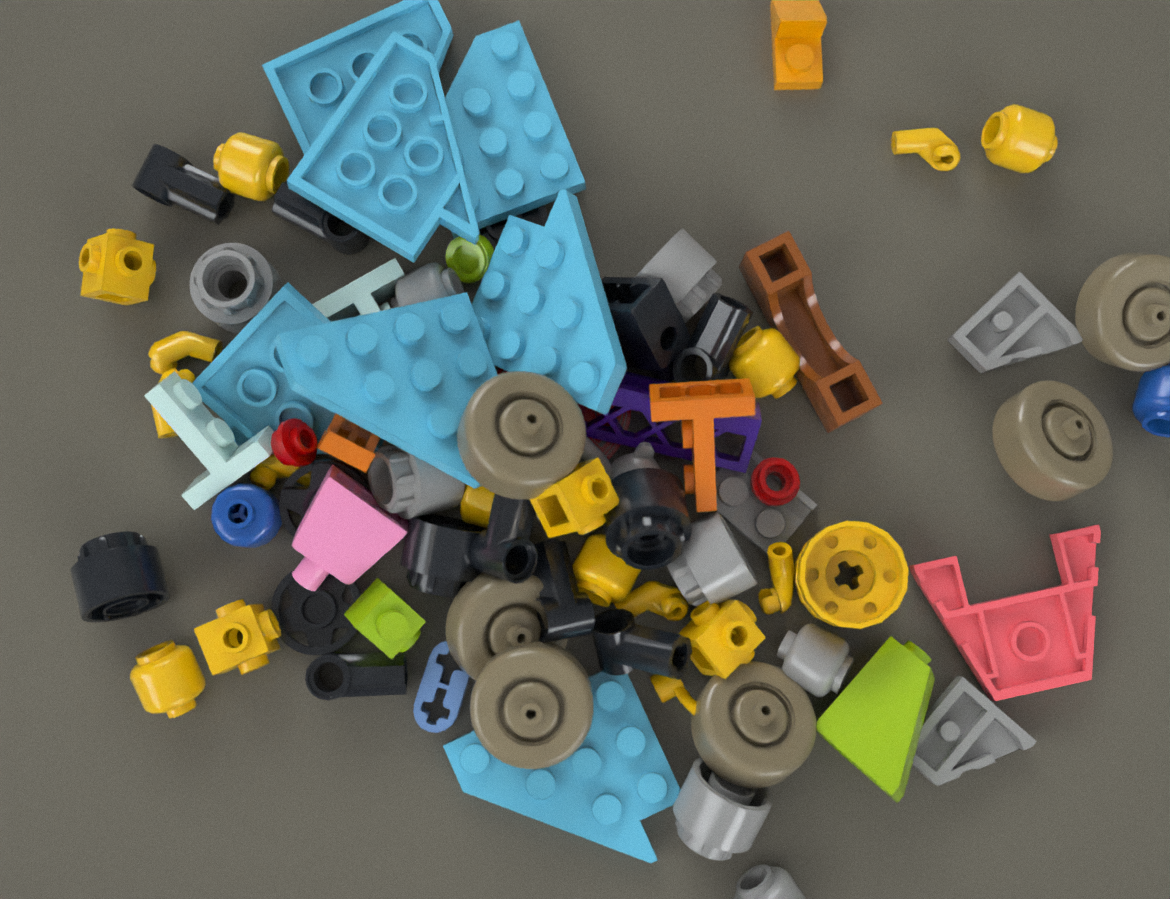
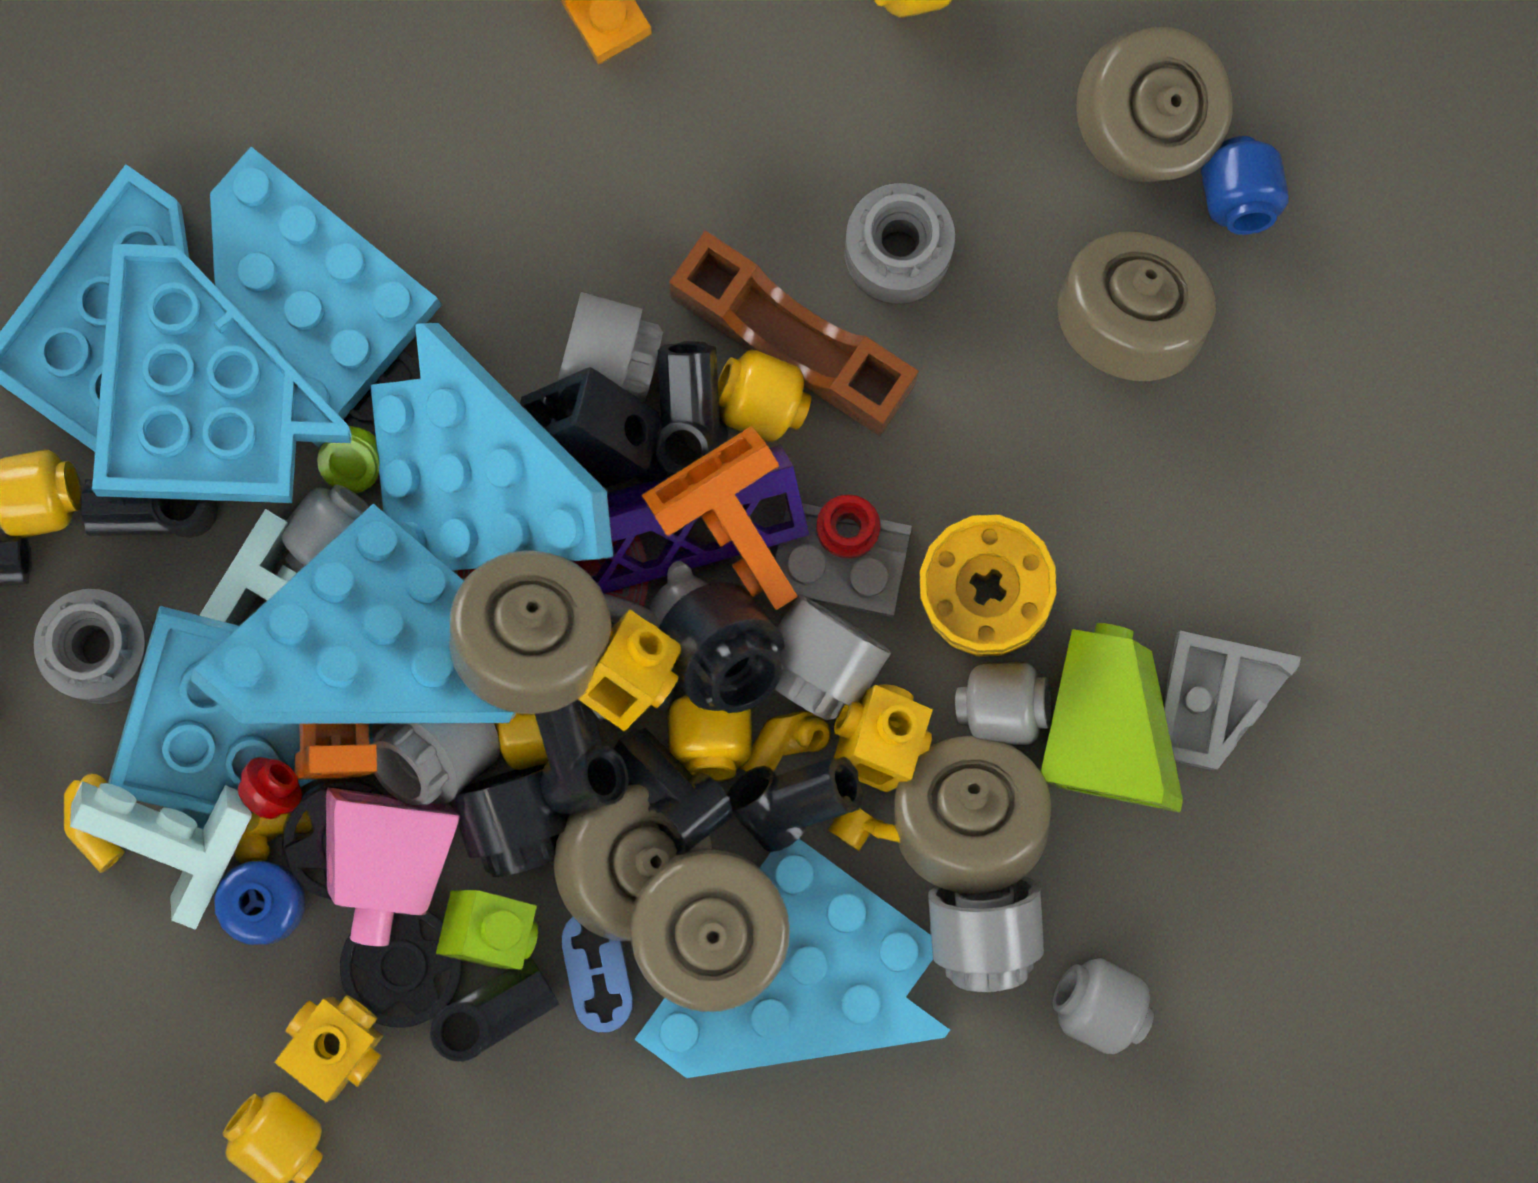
camera: 30 degrees left, 0 degrees up
(118, 577) = (150, 1056): black piece -> none
(179, 345) = (65, 749): yellow arm -> none
(782, 580) = (918, 632): yellow arm -> none
(929, 144) = (815, 33): yellow arm -> none
(930, 294) = (906, 210): none -> light grey piece
(1013, 328) = (1026, 198): light grey wing -> none
(1025, 638) = (1230, 546): coral wing -> none

